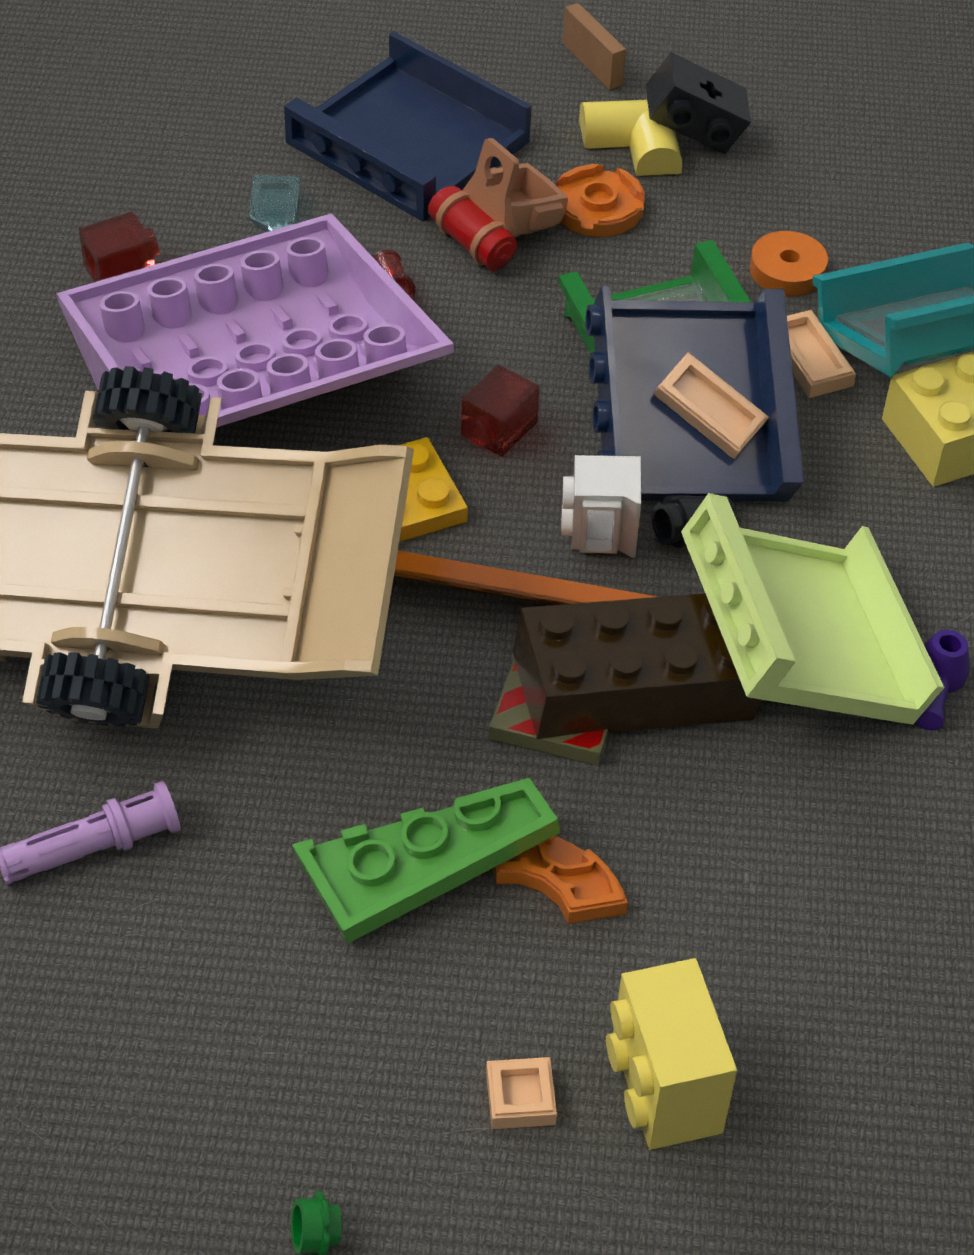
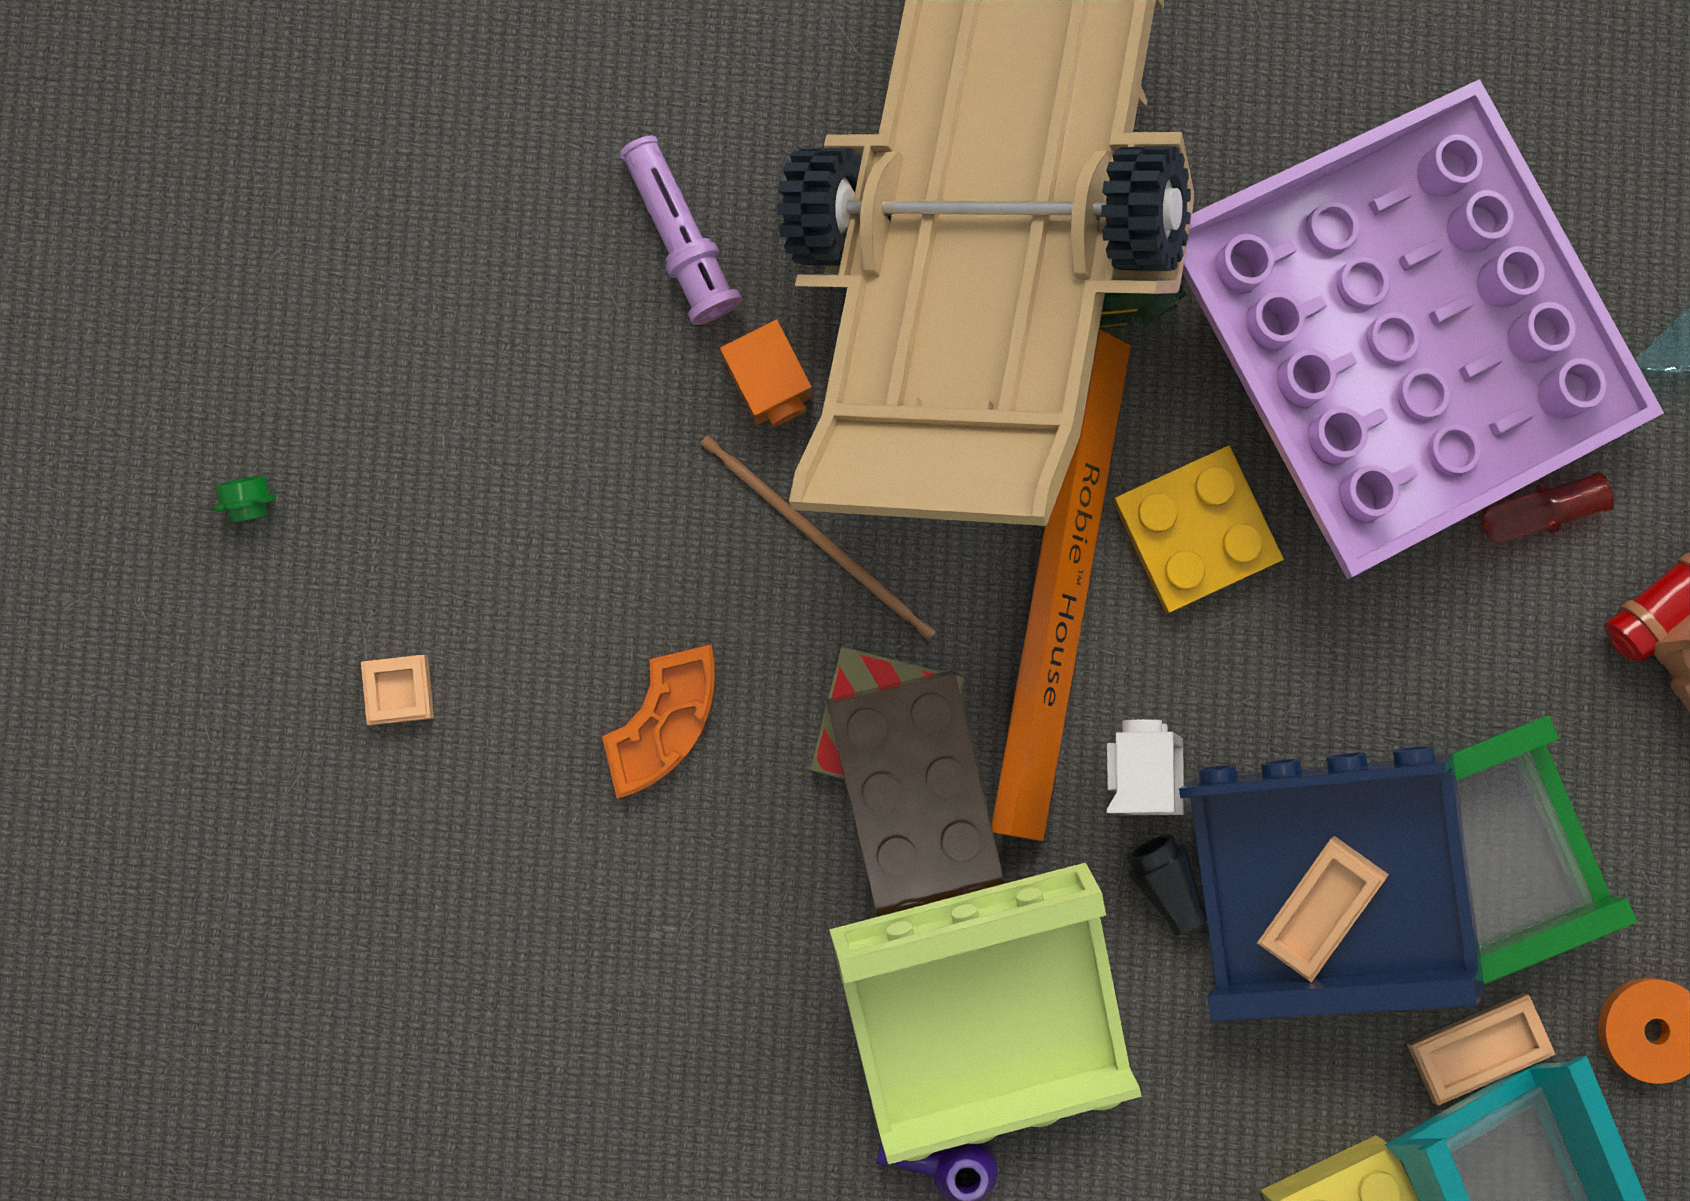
camera: 90 degrees right, 35 degrees up
(117, 246) = (1585, 147): clear red brick -> none
(236, 767) = (768, 374): none -> orange brick
(384, 752) = (818, 537): none -> medium nougat piece
(402, 865) = (653, 567): bright green wing -> none
(499, 410) = (1328, 645): clear red brick -> none
(671, 1054) = (402, 837): light yellow brick -> none

